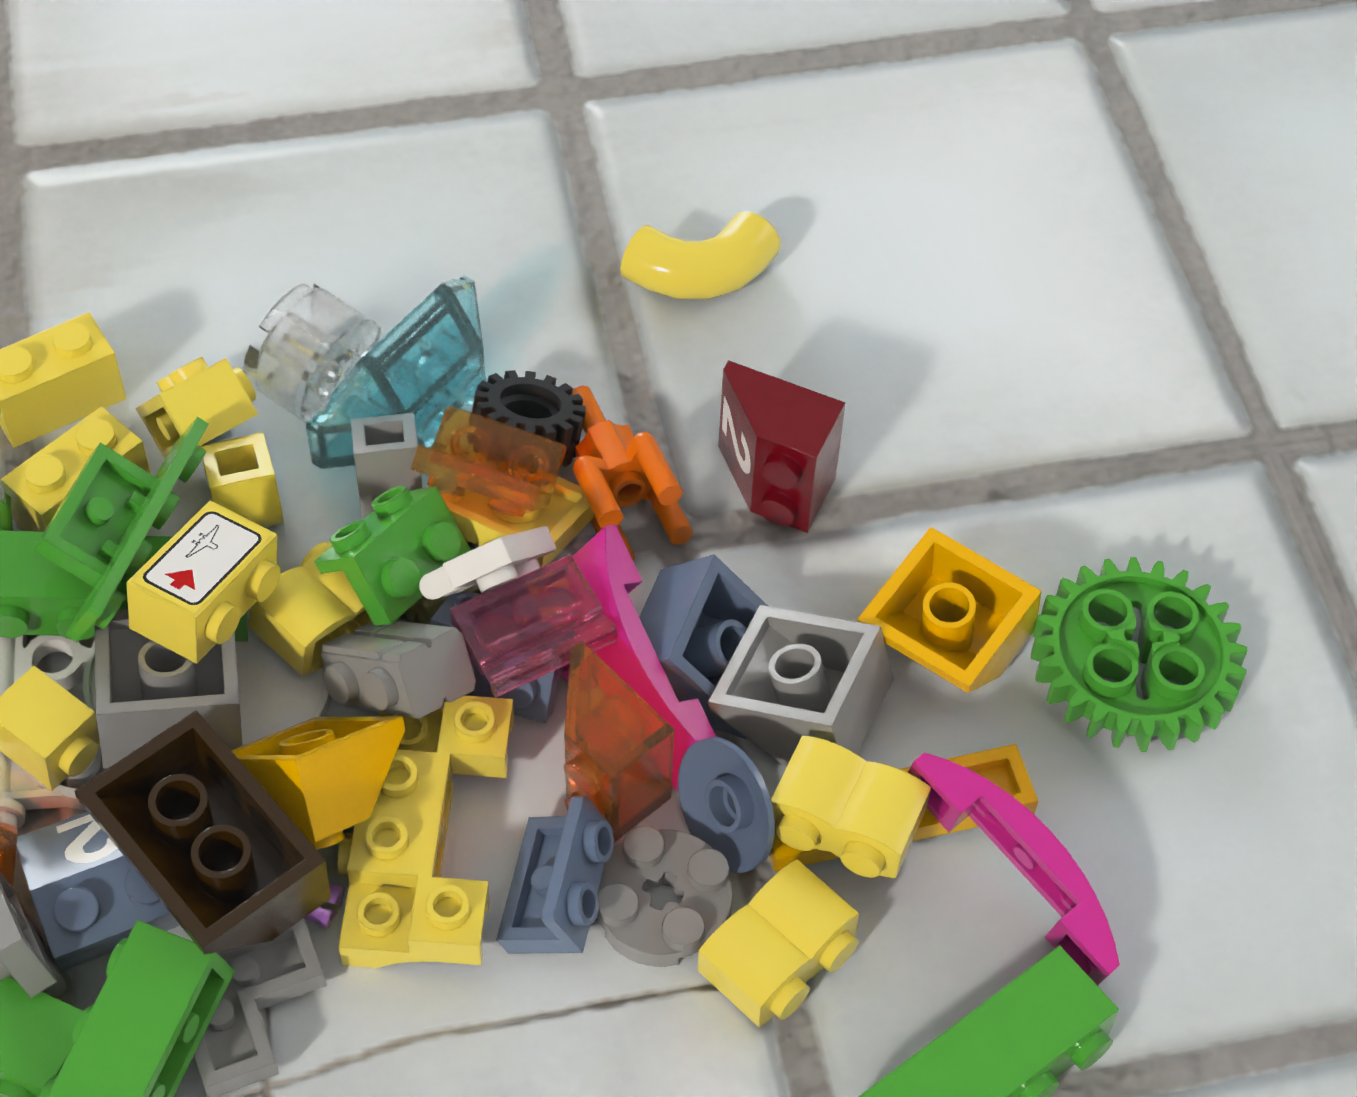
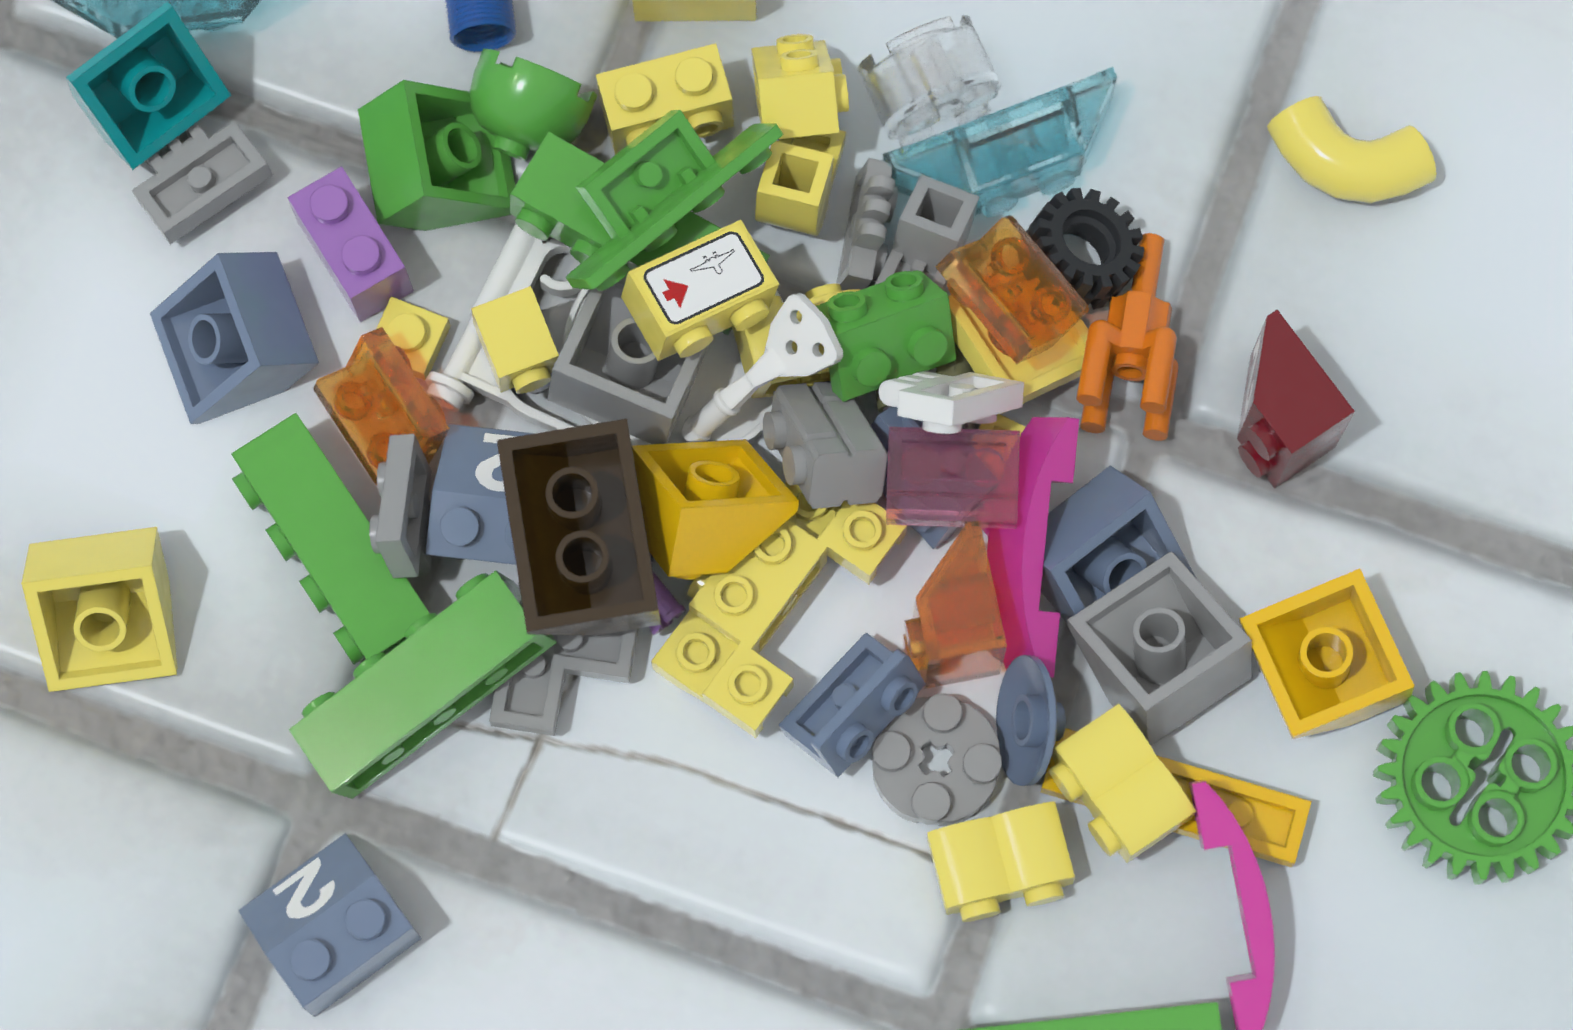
camera: 35 degrees right, 20 degrees up
(310, 614) = (776, 362): none -> white piece
(322, 482) = (870, 207): none -> light grey hinge

